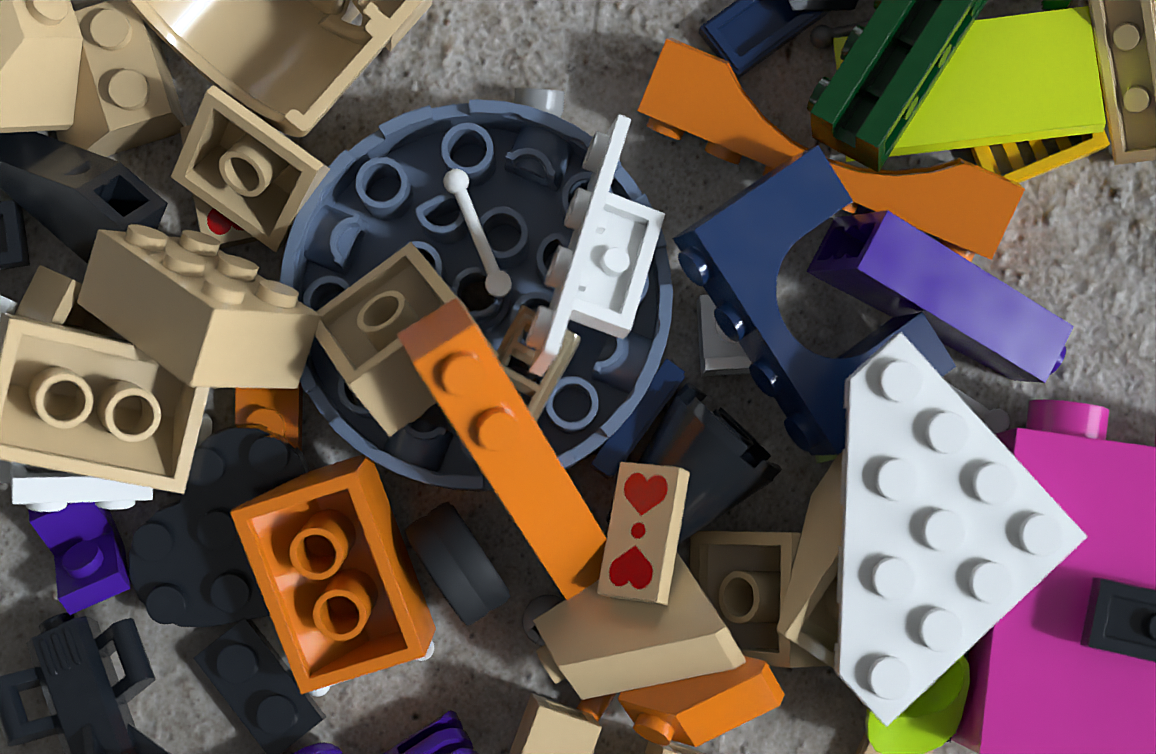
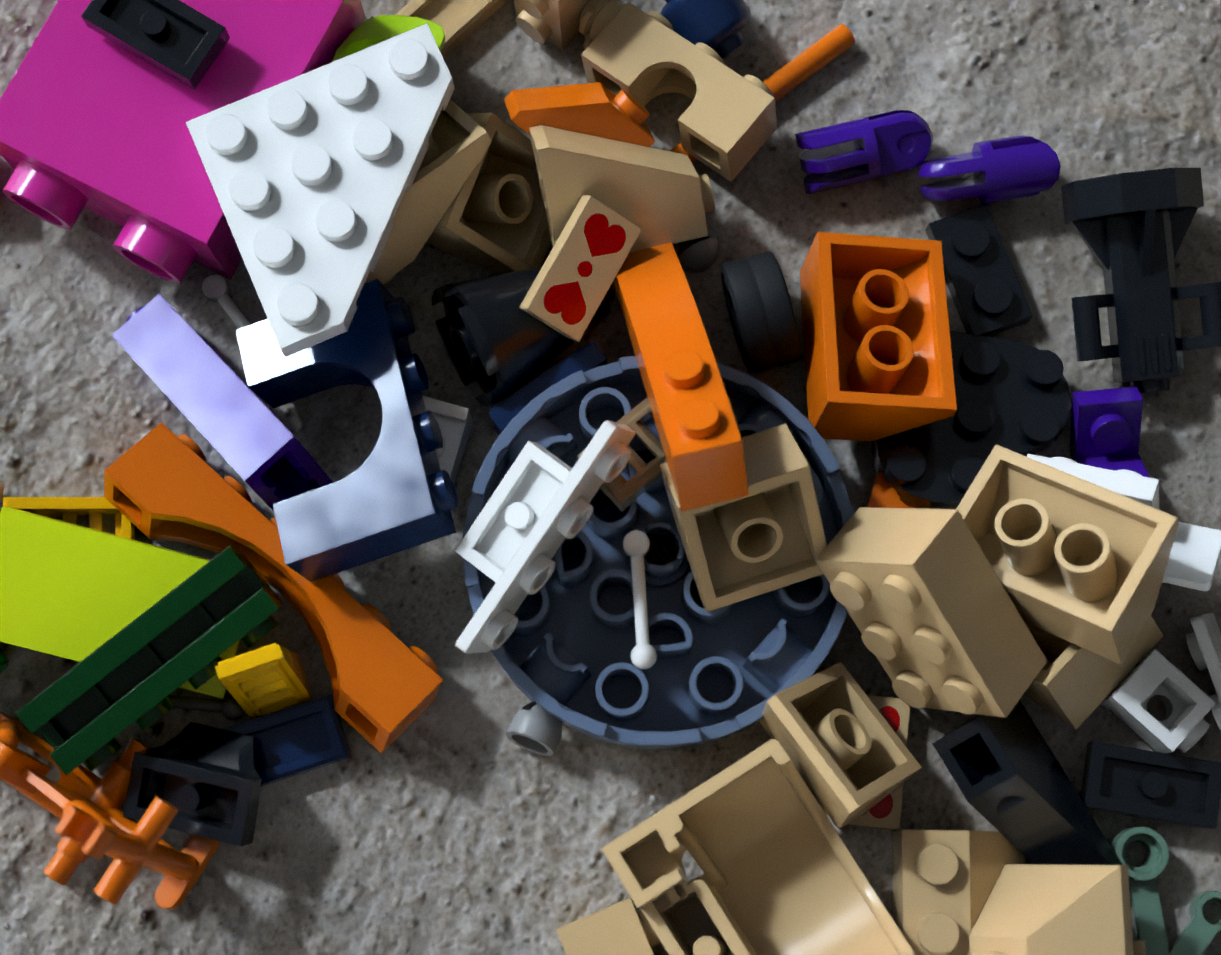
camera: 155 degrees left, 5 degrees down
(801, 62) = (265, 680): none -> yellow slope

